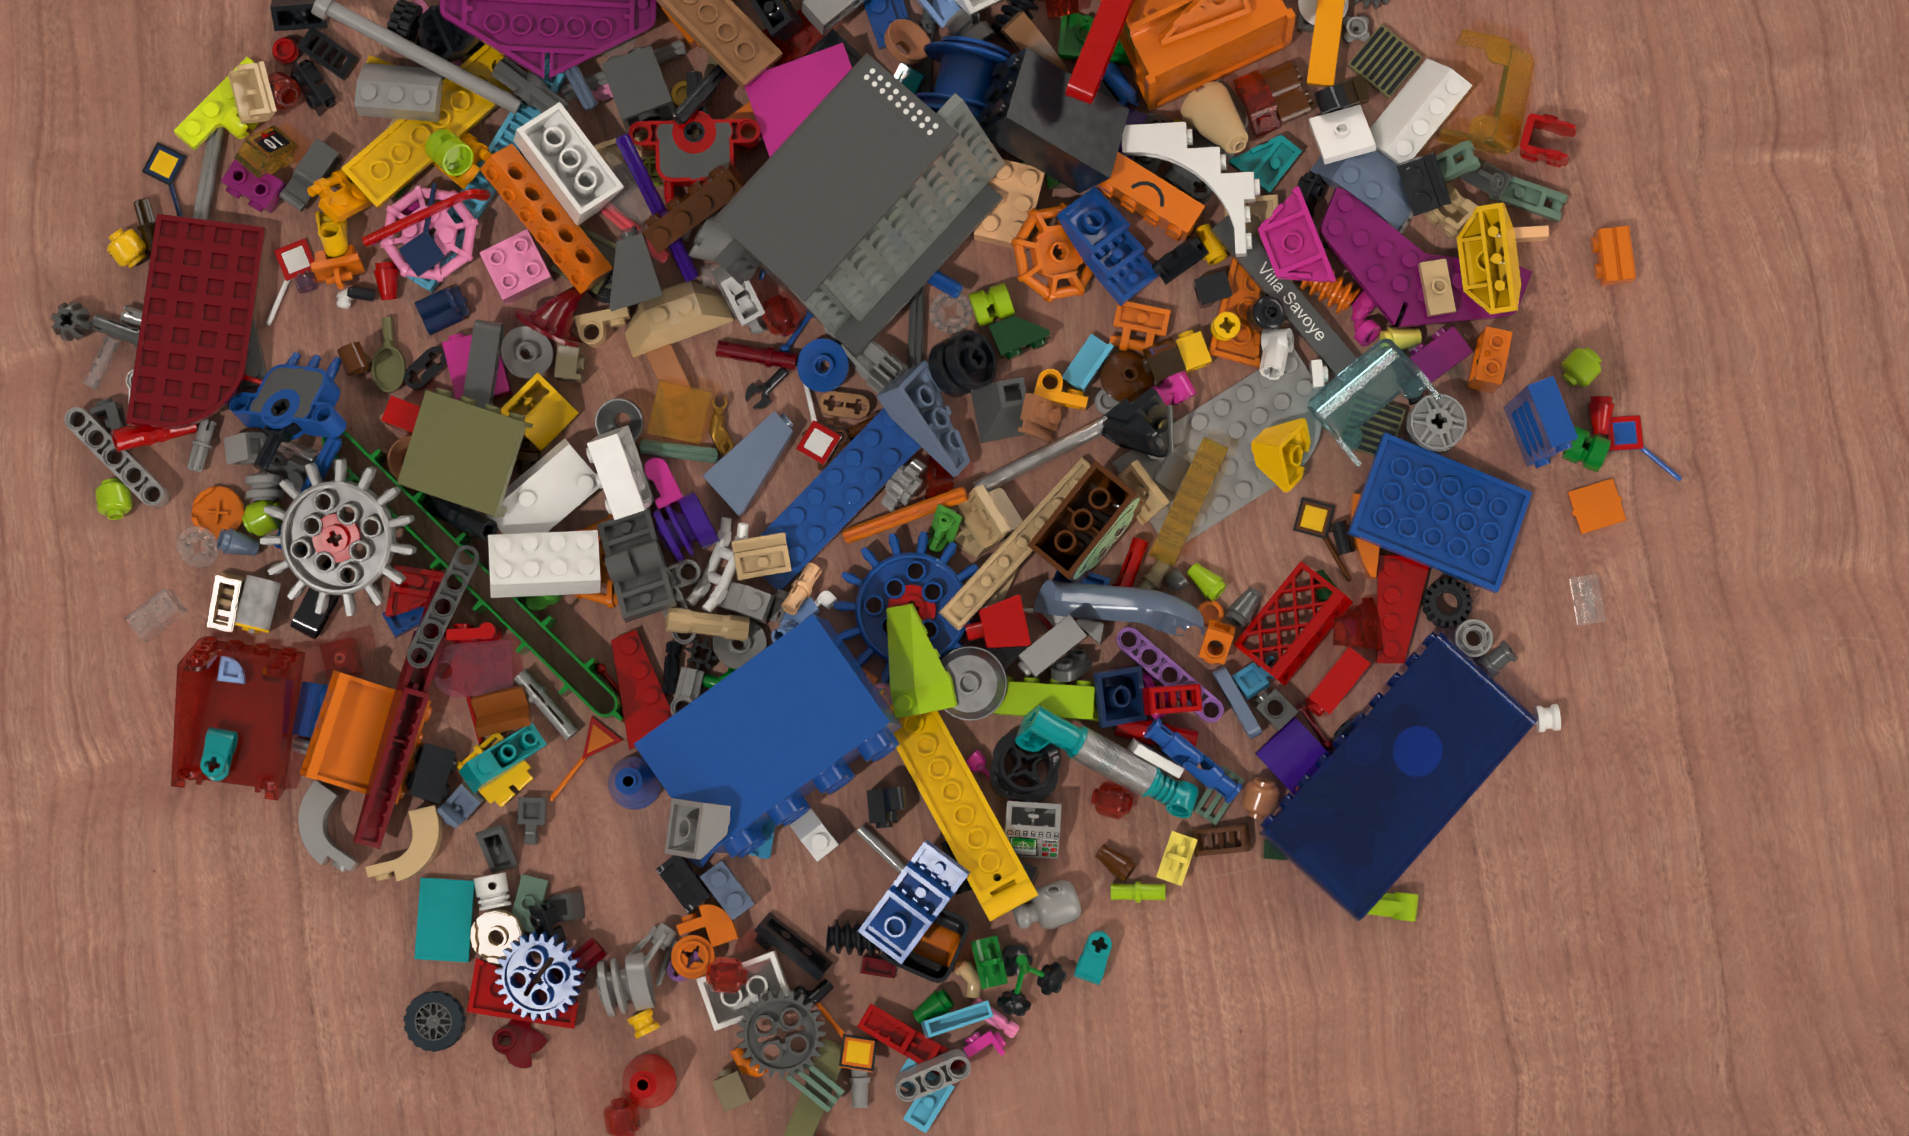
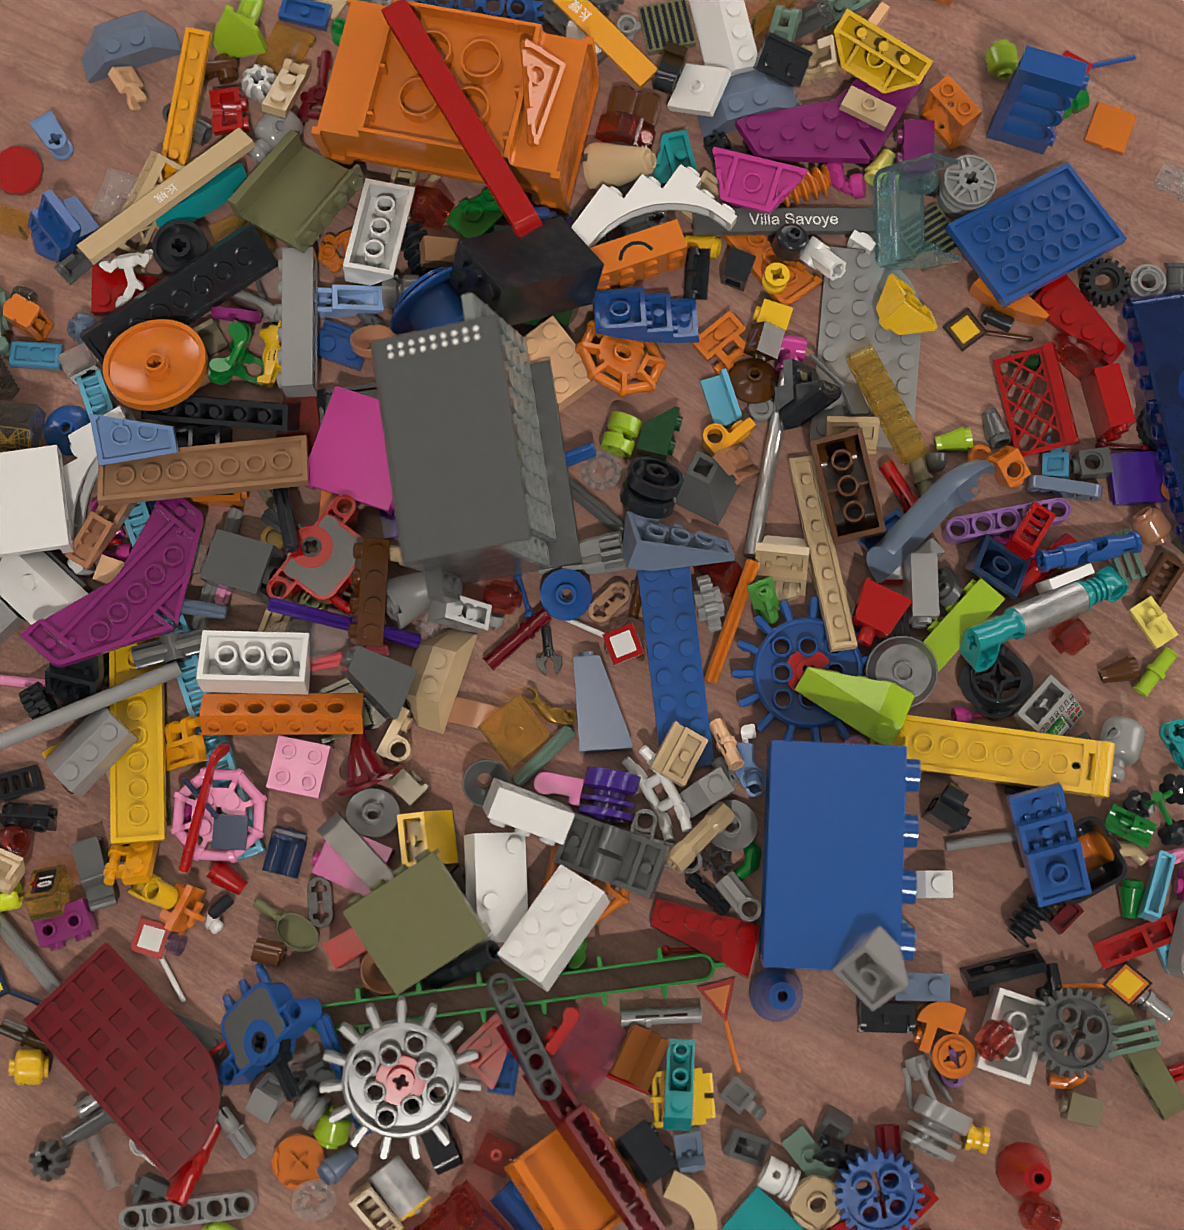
camera: 60 degrees left, 5 degrees down
(449, 152) = (169, 747): lime wheel -> none

